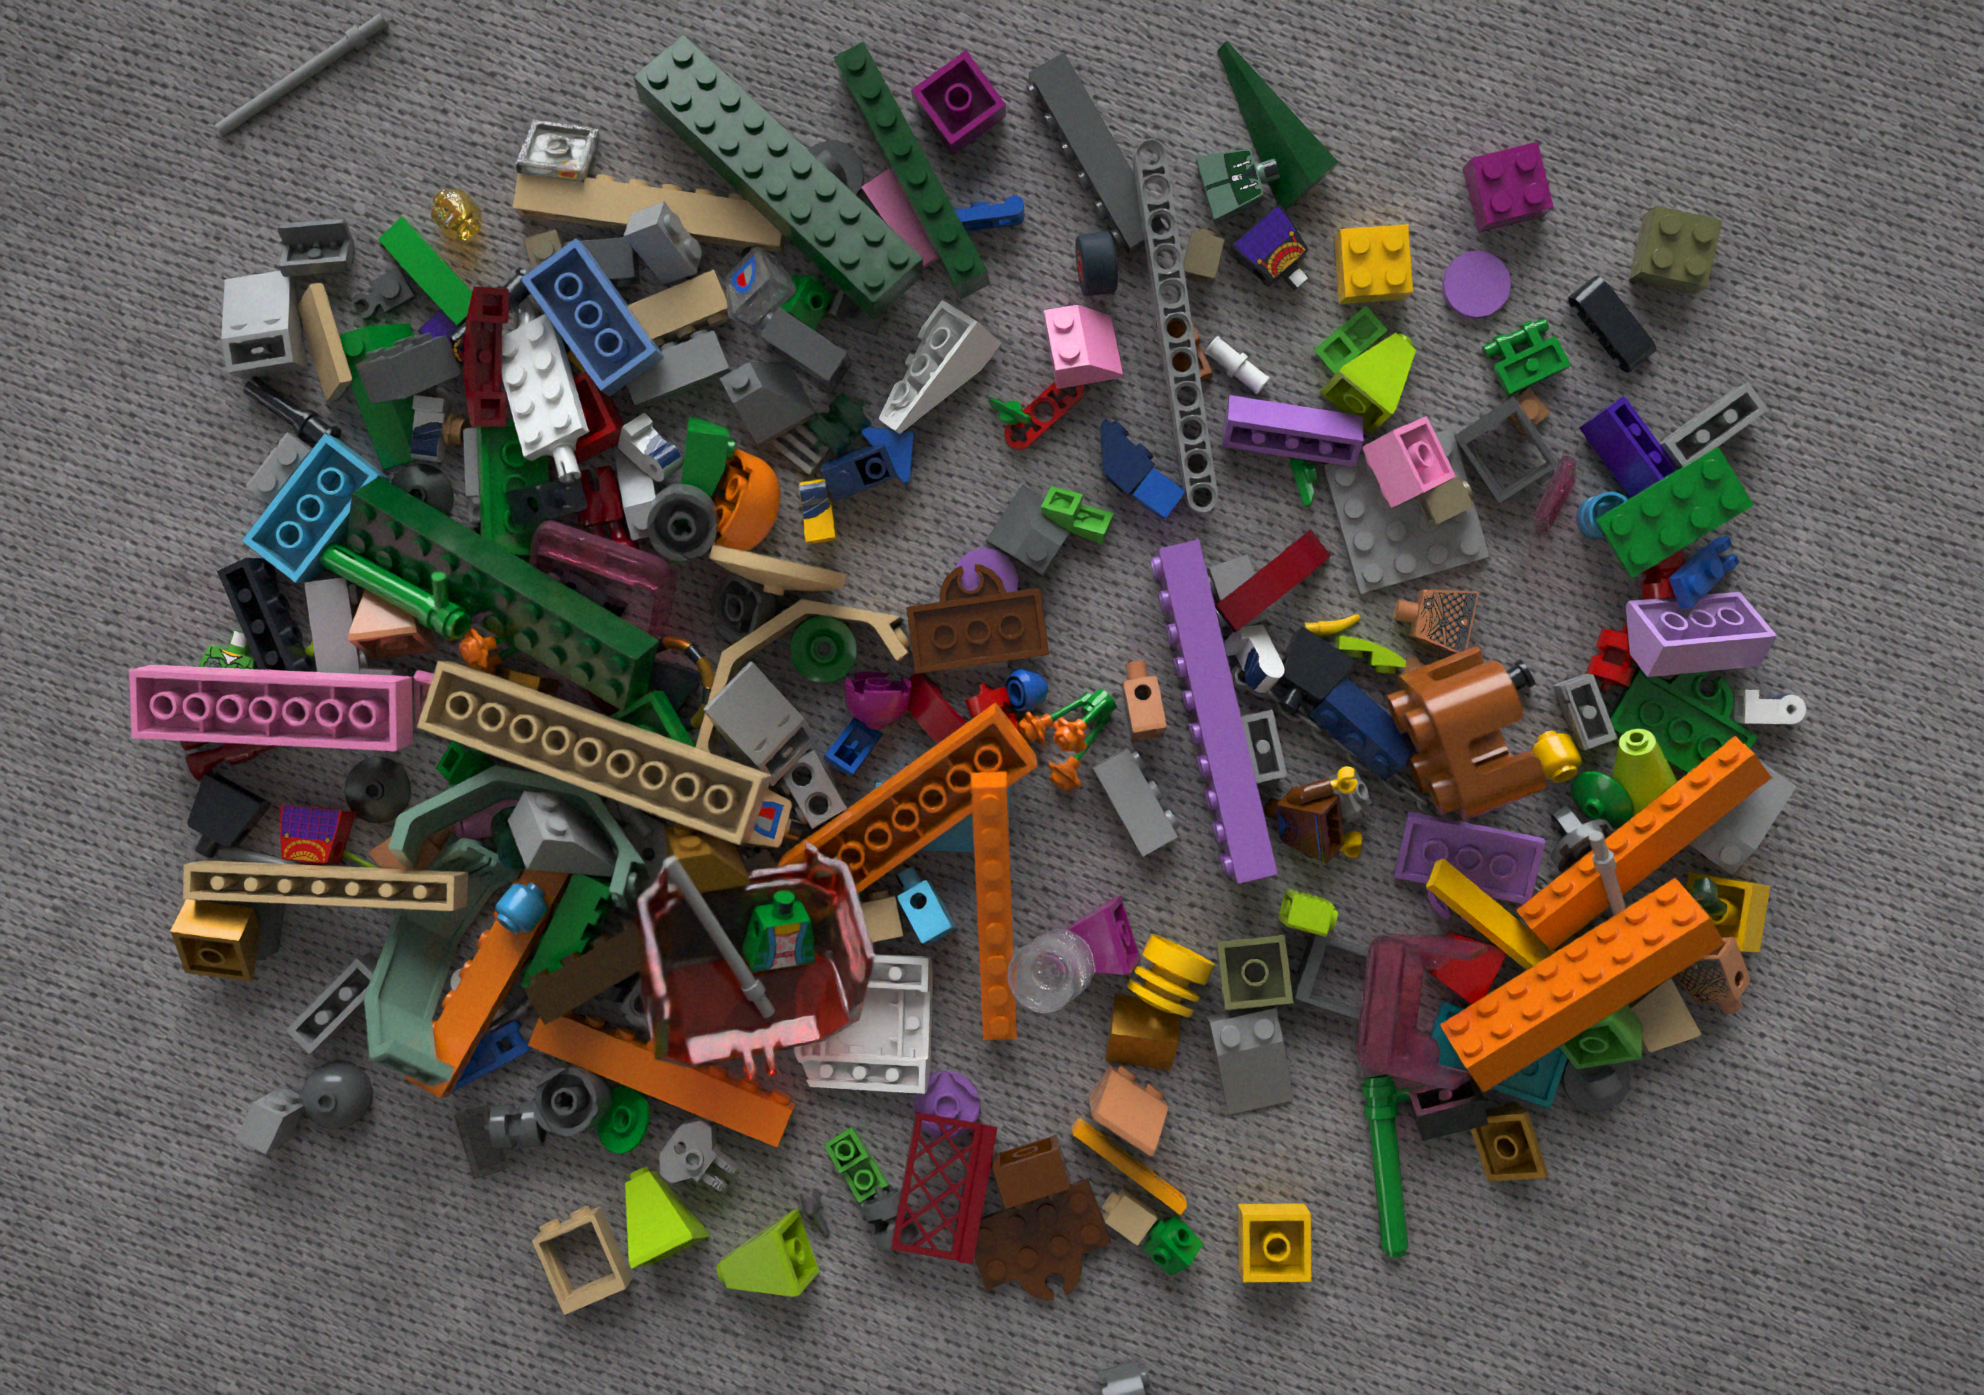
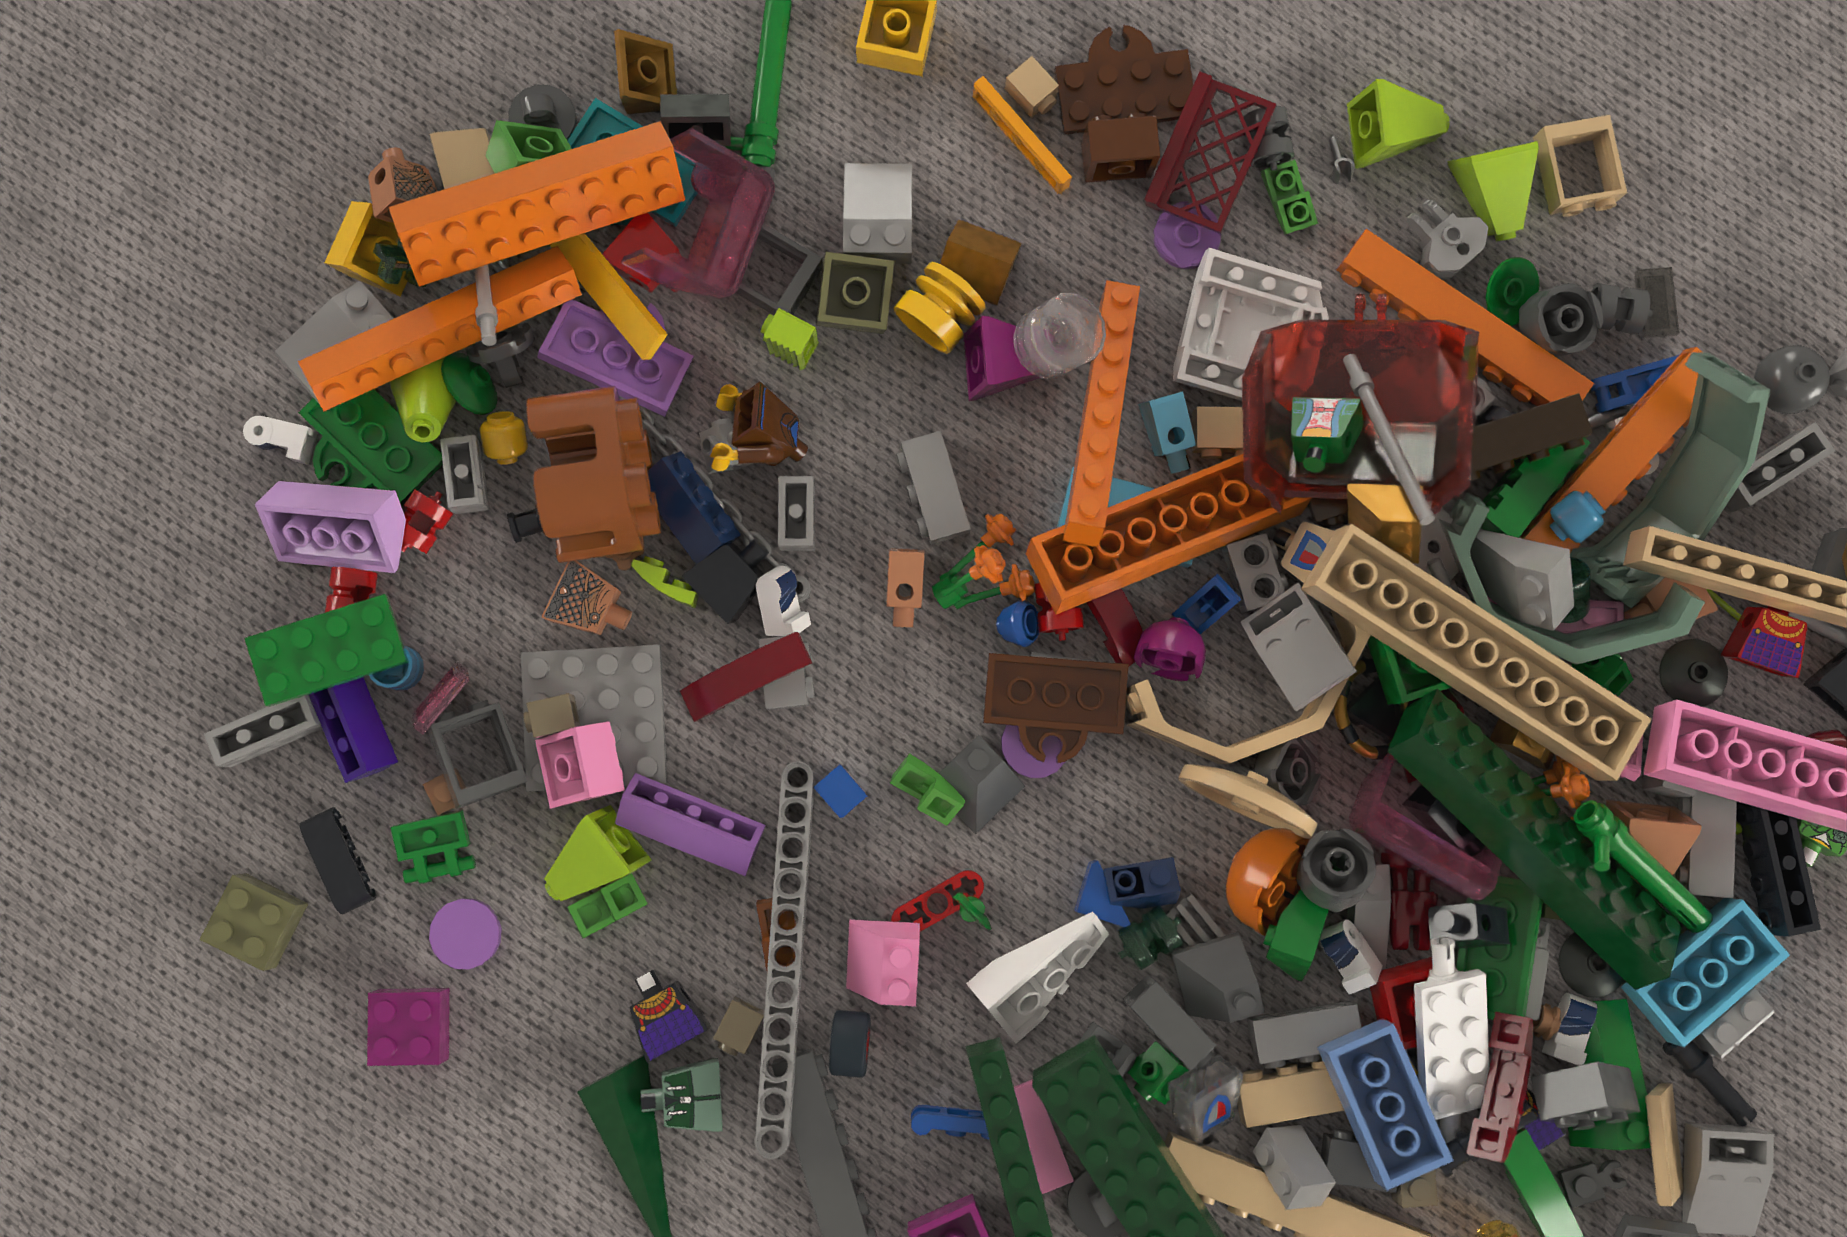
camera: 175 degrees left, 5 degrees down
(806, 653) = (1223, 696): green dish -> none
(817, 512) = (1191, 852): leg -> none
(1121, 460) = (870, 834): dark blue slope -> none
(1129, 1108) = (1011, 186): nougat slope -> none
(1172, 1245) = (996, 50): green brick -> none
(1214, 711) = (835, 556): medium lavender brick -> none
(1237, 365) = (729, 906): white pin -> none
(1304, 476) = (688, 774): green piece -> none
(1326, 628) = (700, 618): yellow helmet -> none
(1373, 264) = (565, 978): yellow brick -> none
(1702, 572) = (311, 586): blue hinge -> none

